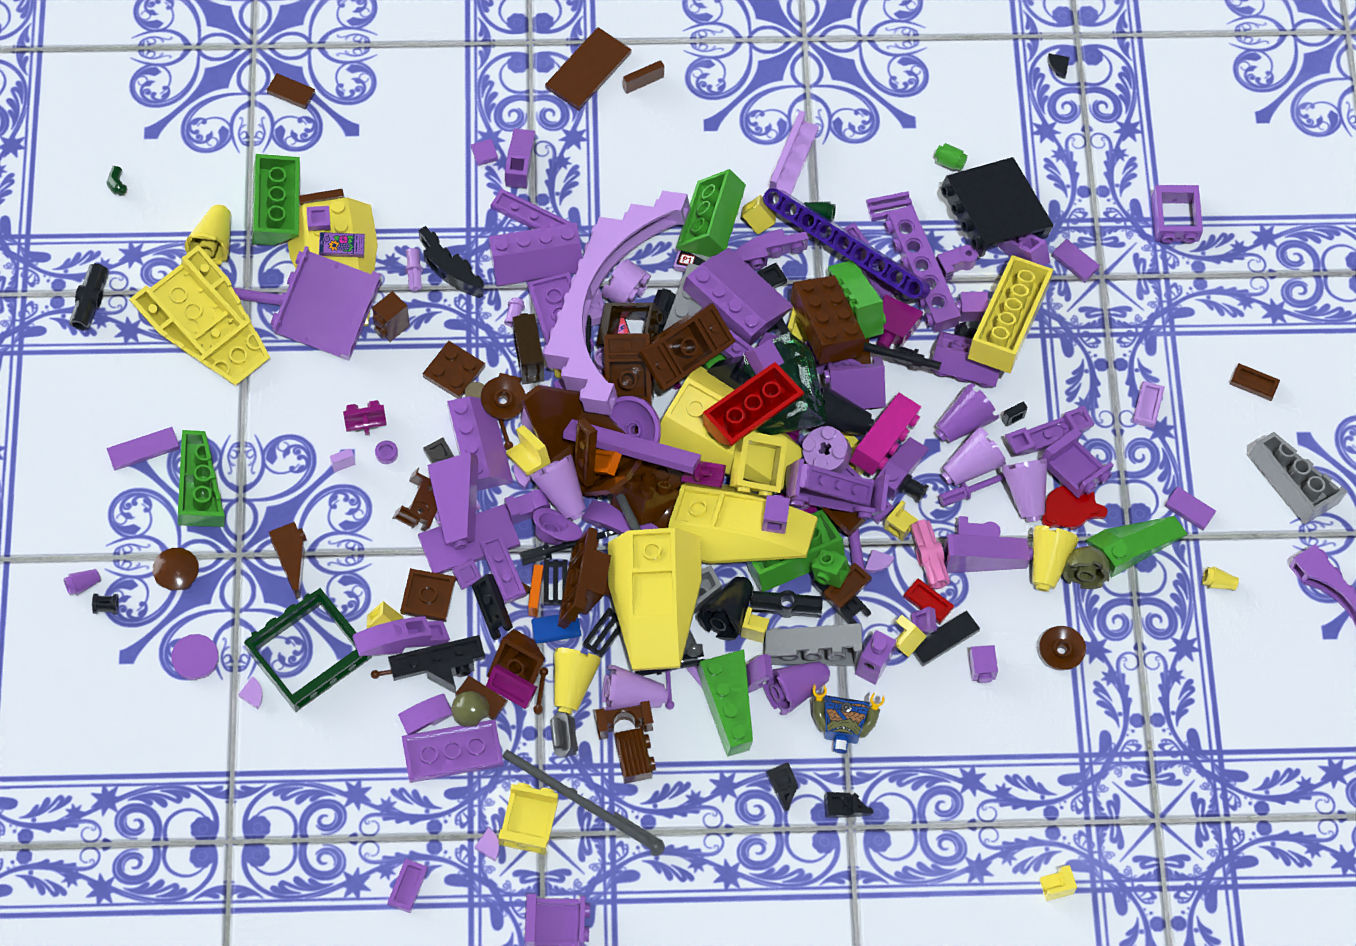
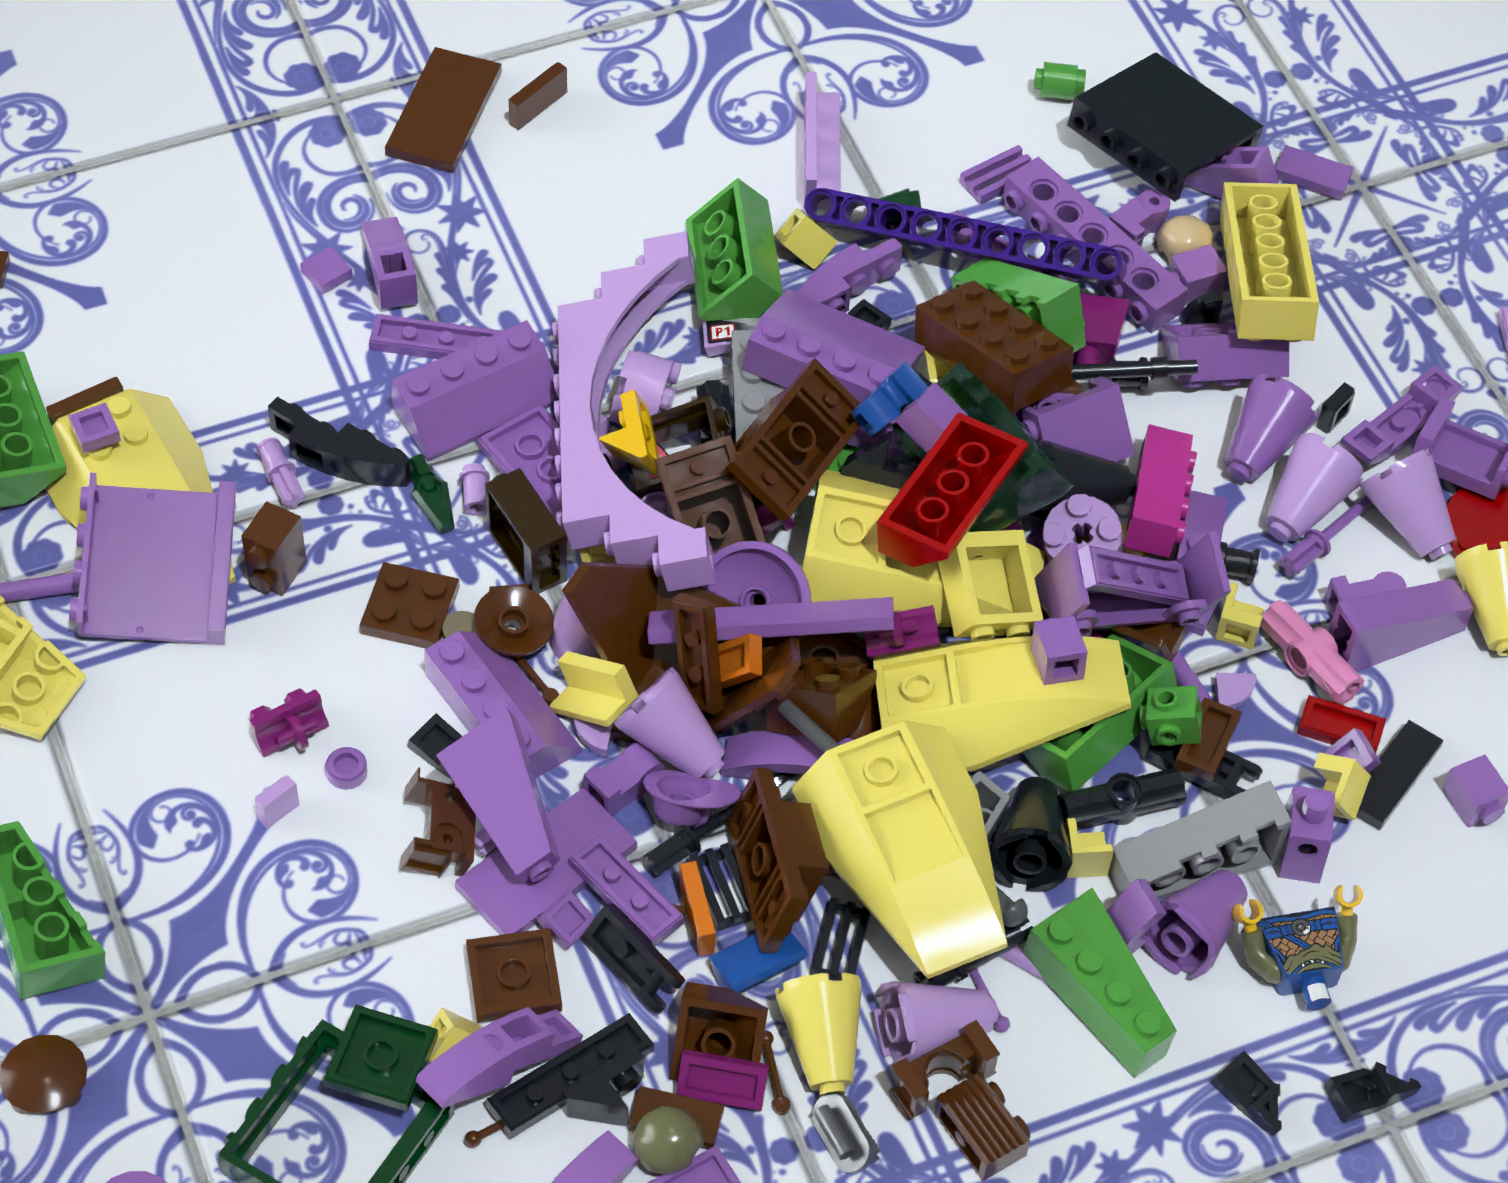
camera: 20 degrees left, 10 degrees down
(290, 551) = (237, 974): reddish brown slope -> none
(341, 244) = (148, 460): tile -> none
(341, 618) = (380, 1057): none -> dark green tile
(490, 308) = (432, 495): none -> dark green piece
(606, 315) = (636, 440): none -> yellow slope
(744, 339) = (887, 399): none -> blue leg
(978, 280) = (1182, 235): none -> tan hair
(1177, 194) = (1423, 40): medium lavender window -> none

